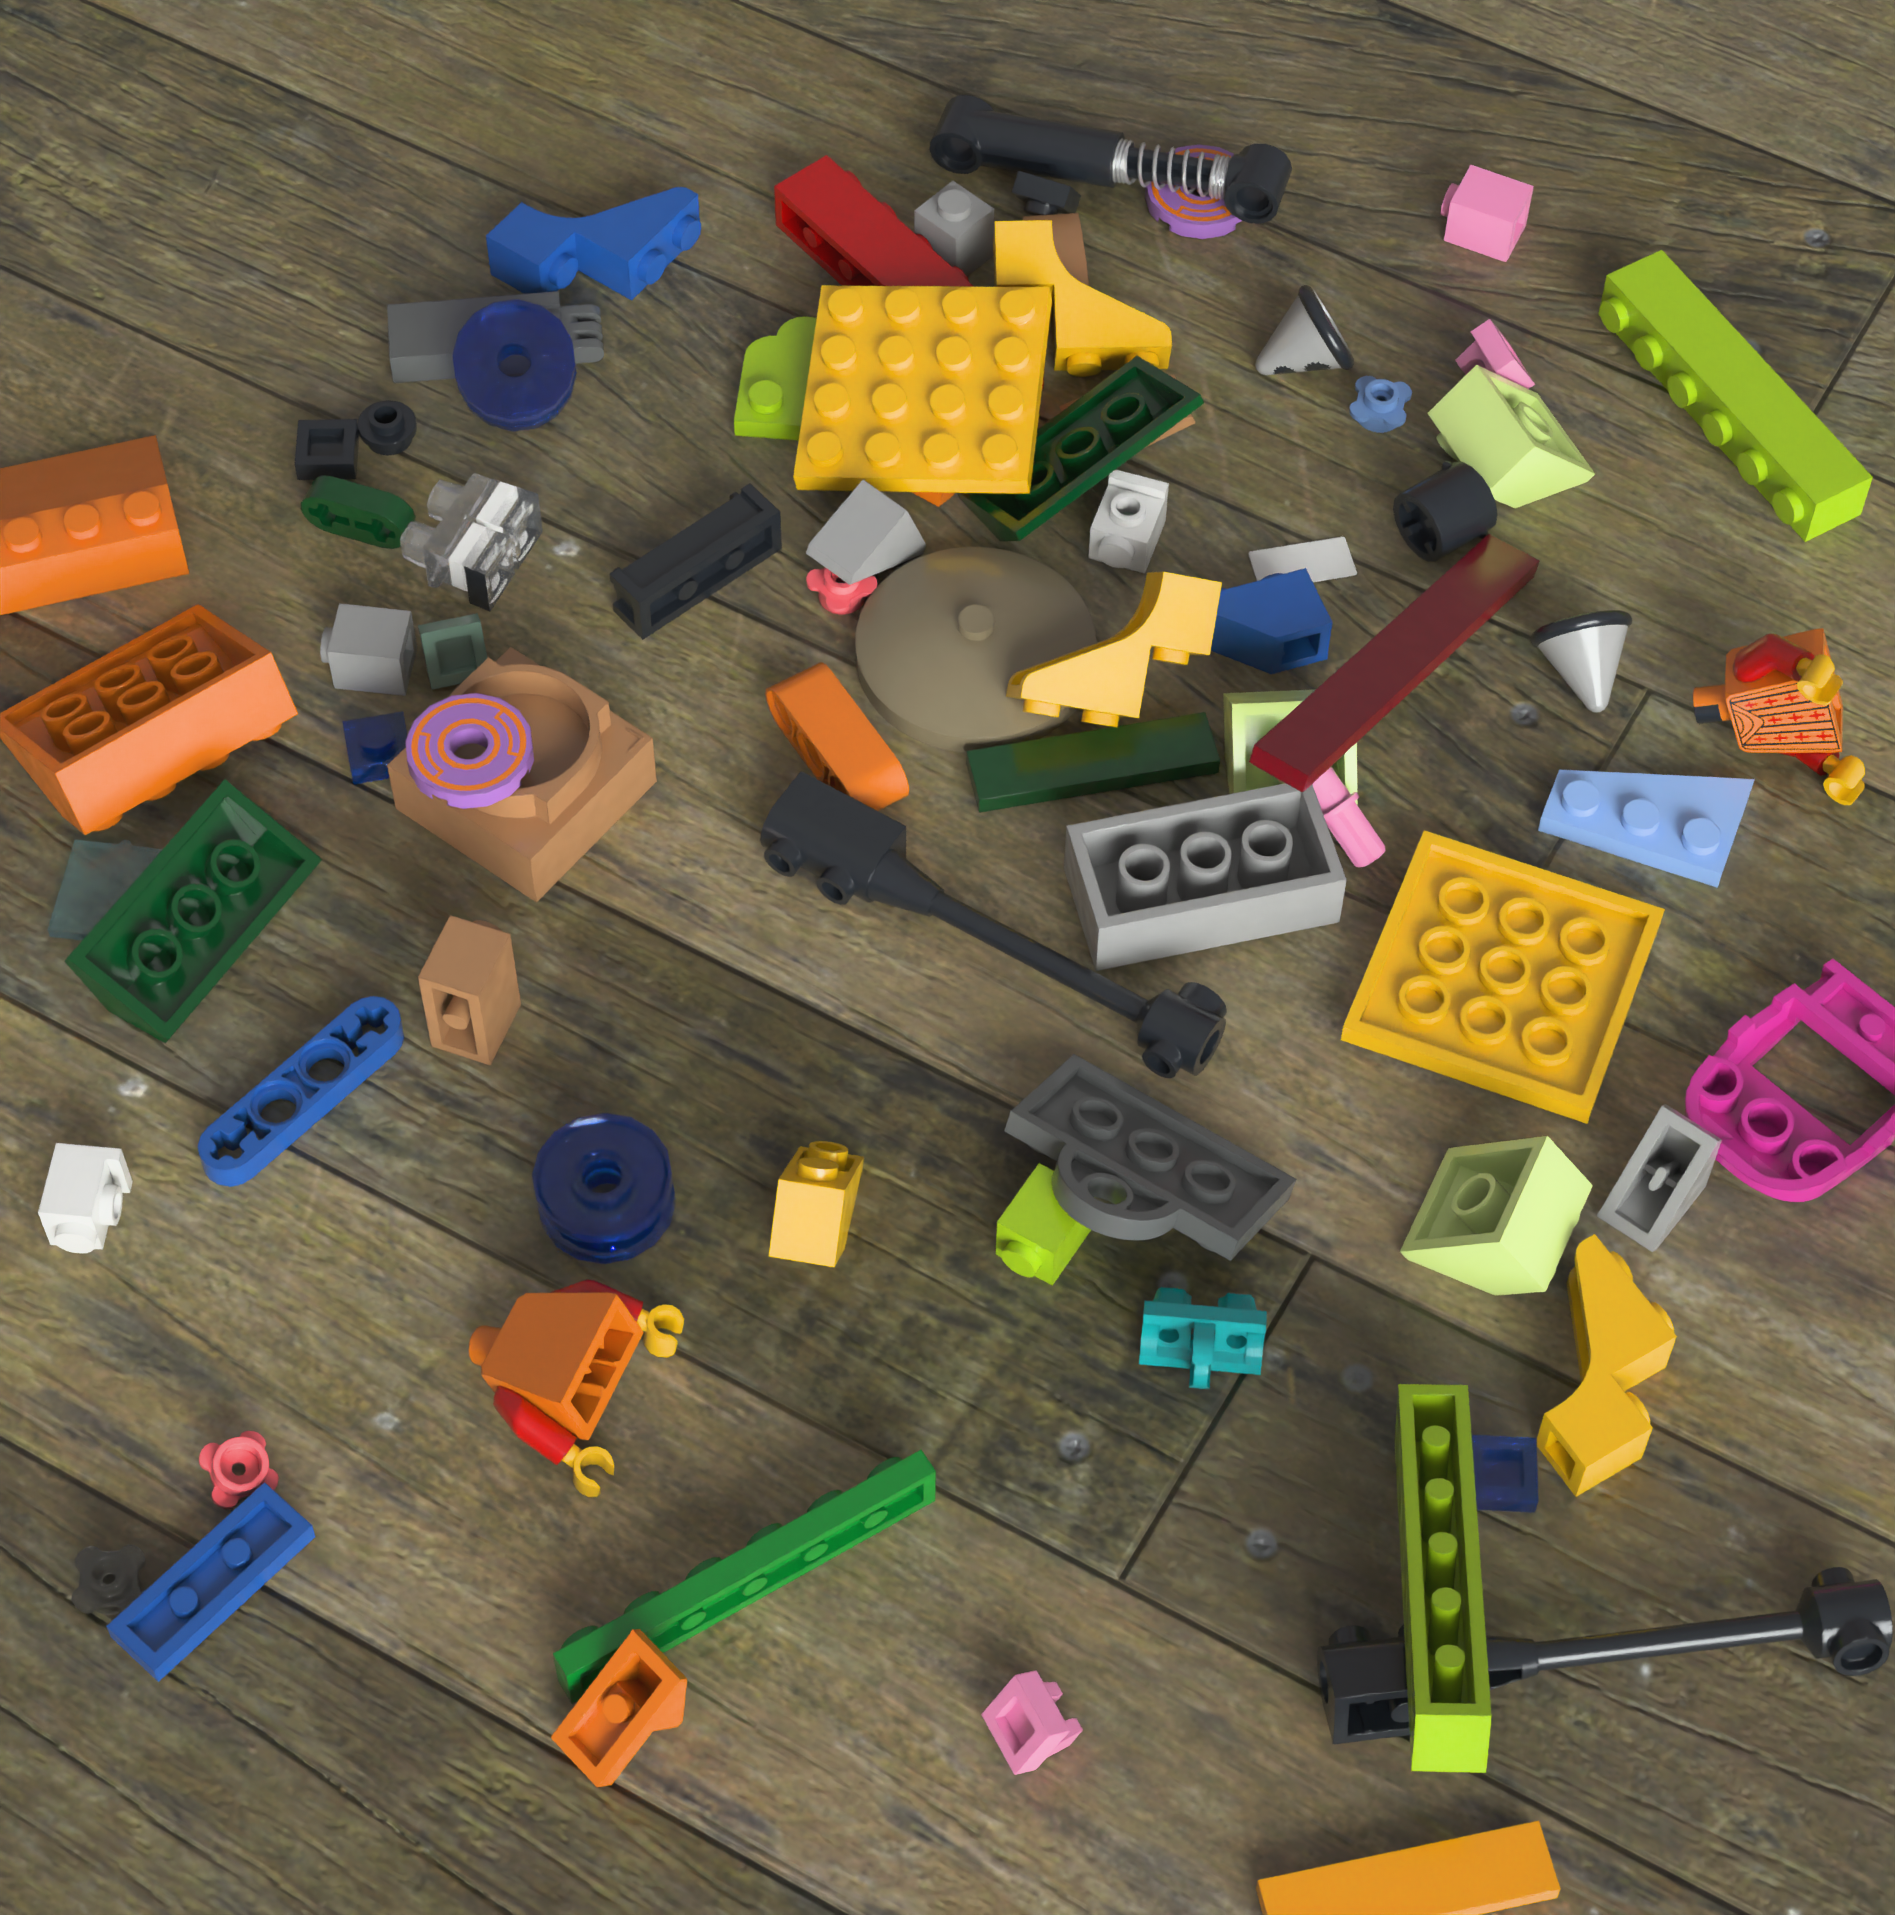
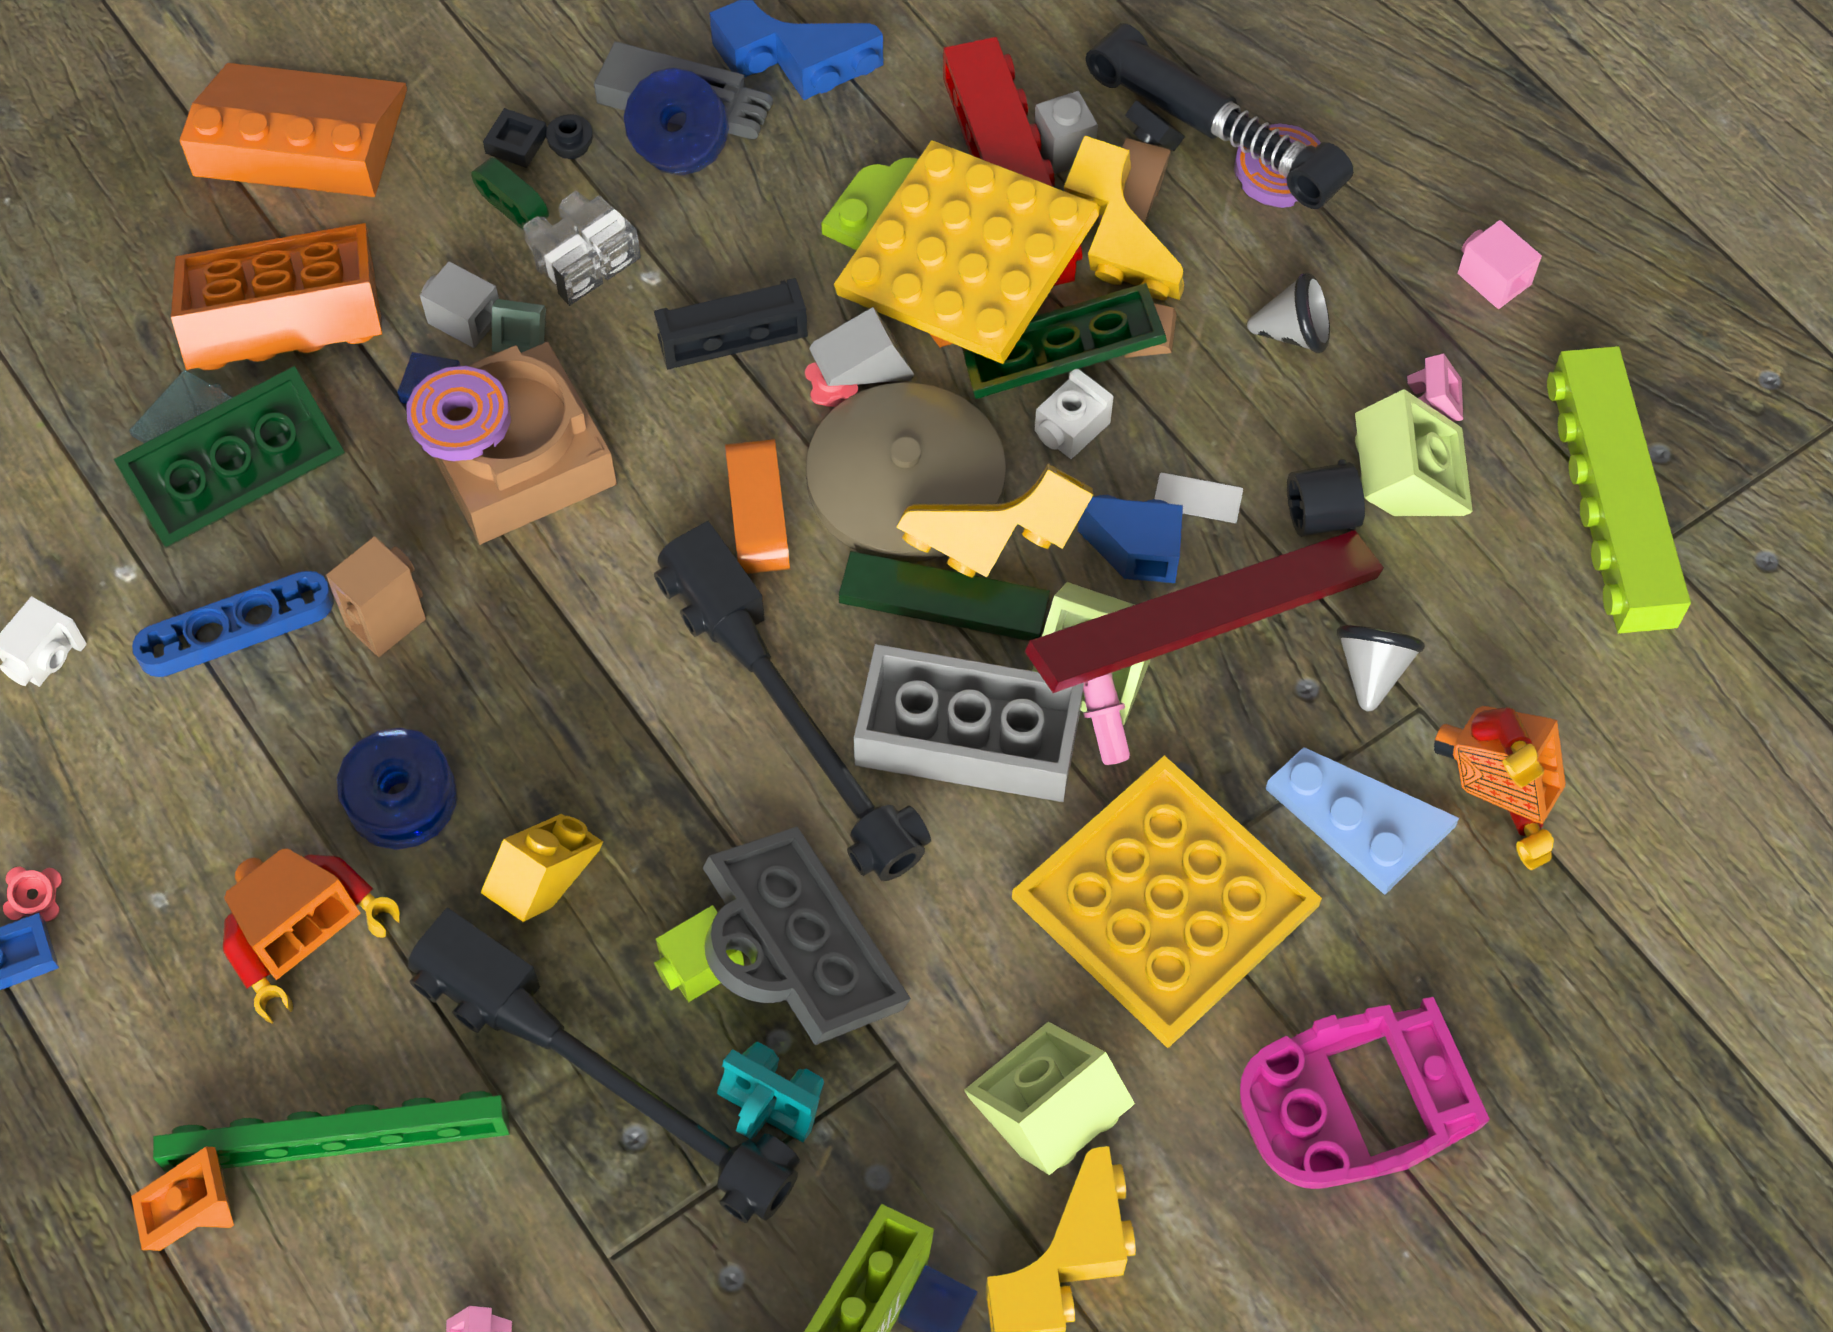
camera: 25 degrees right, 5 degrees up
(838, 1351) = (499, 990): none -> black bar
(1380, 404) = (1323, 400): medium blue plate -> none
(1661, 1178) = (1193, 1122): light grey slope -> none

